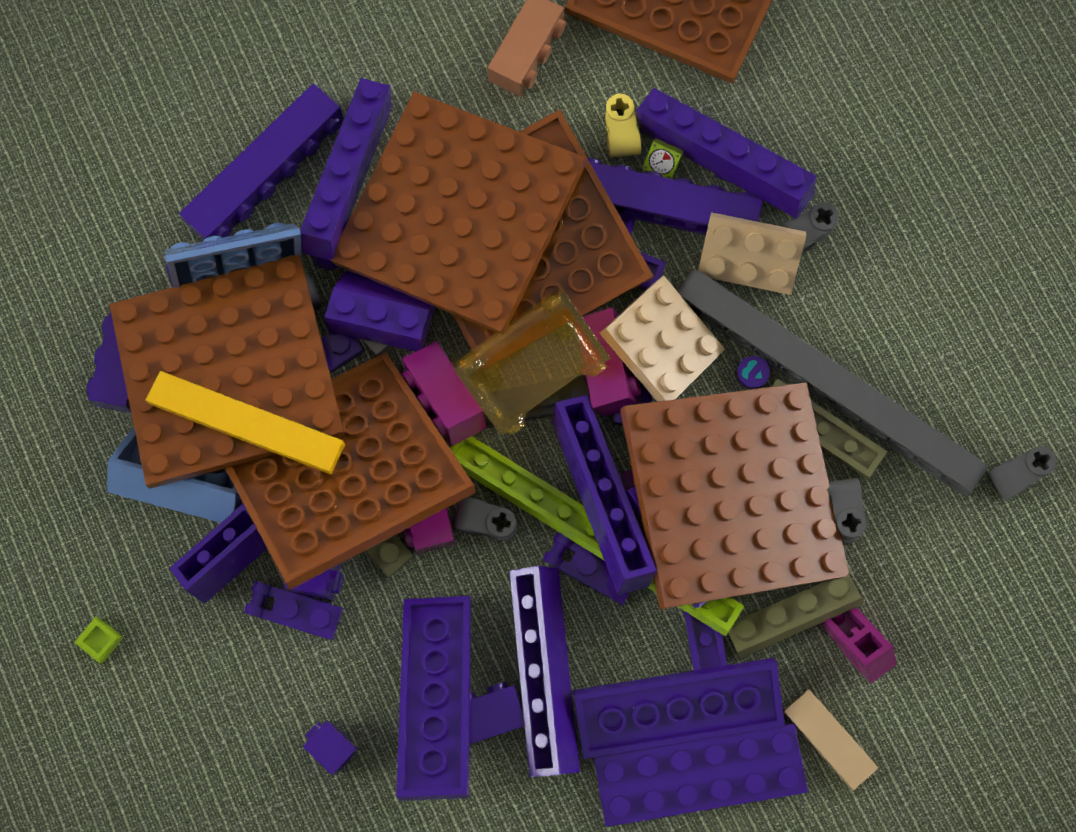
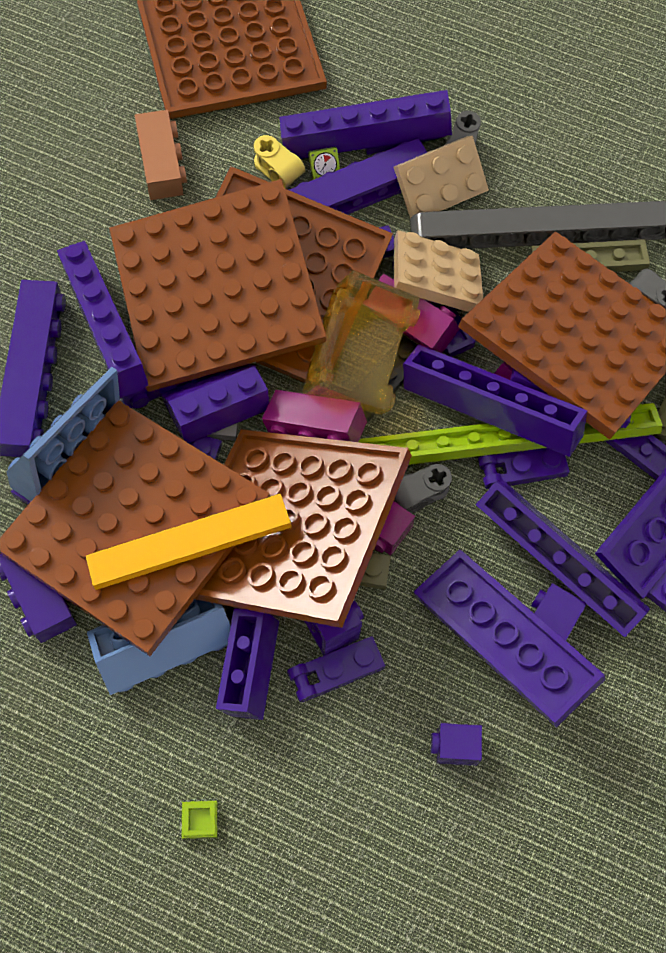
camera: 45 degrees left, 10 degrees down
(753, 372) = (510, 256): dark purple tile -> none

